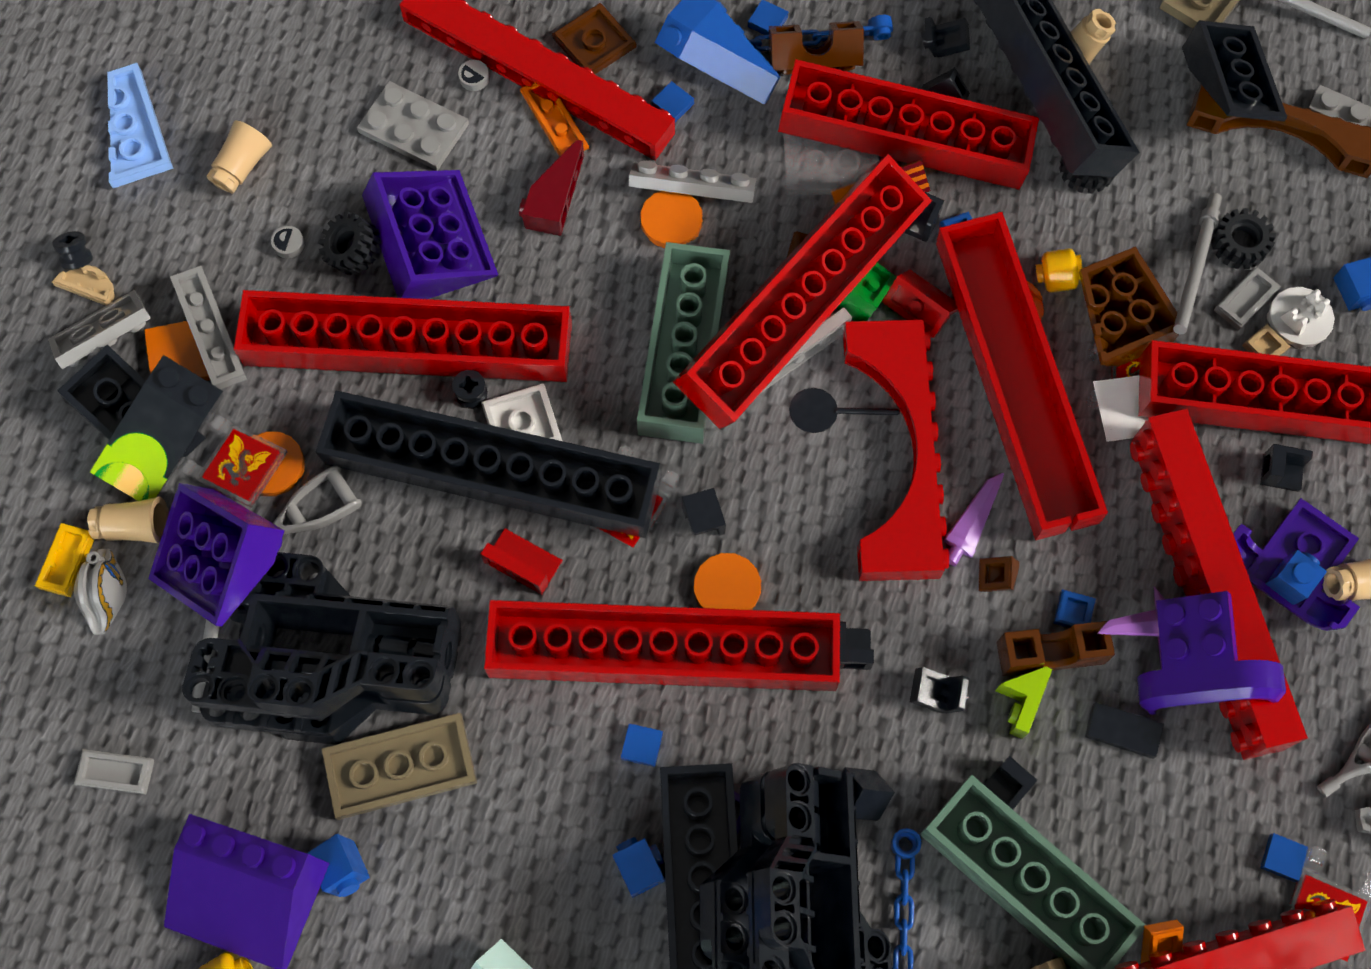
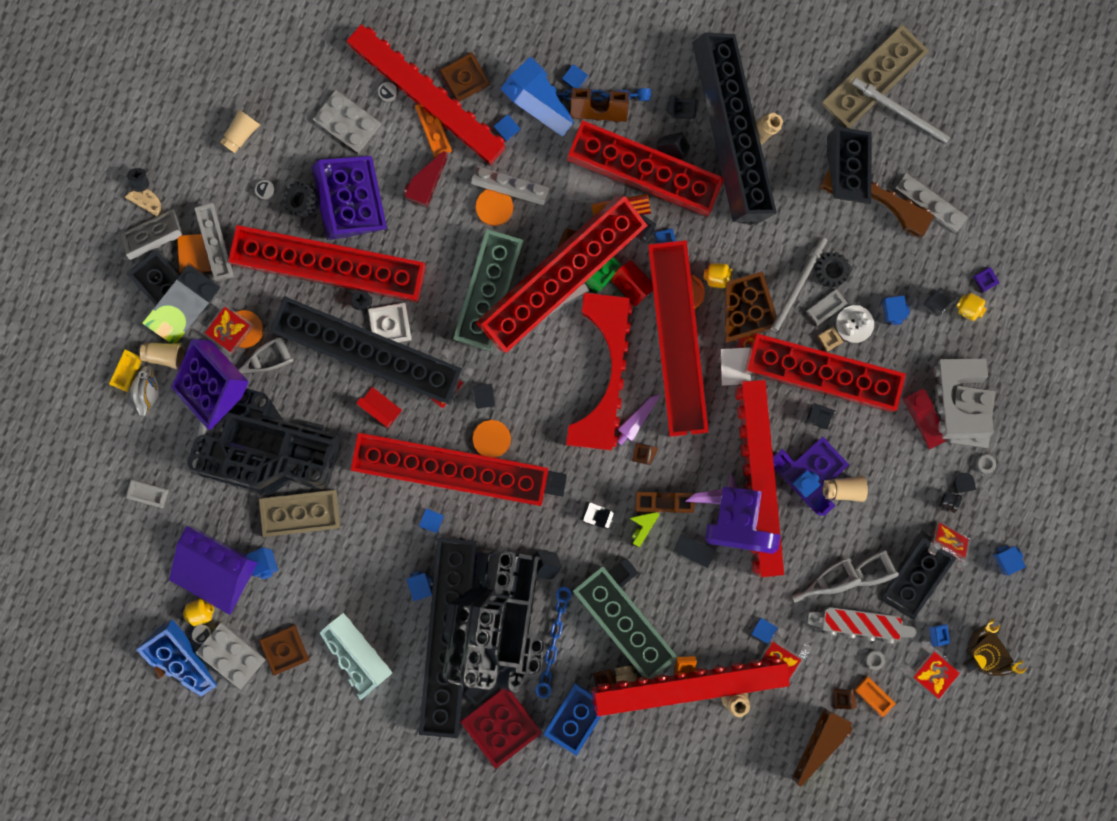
camera: 10 degrees right, 15 degrees up
(134, 131) = (179, 107): light blue wing -> none
(816, 410) = (559, 341): black piece -> none
(1073, 609) = (682, 480): blue tile -> none

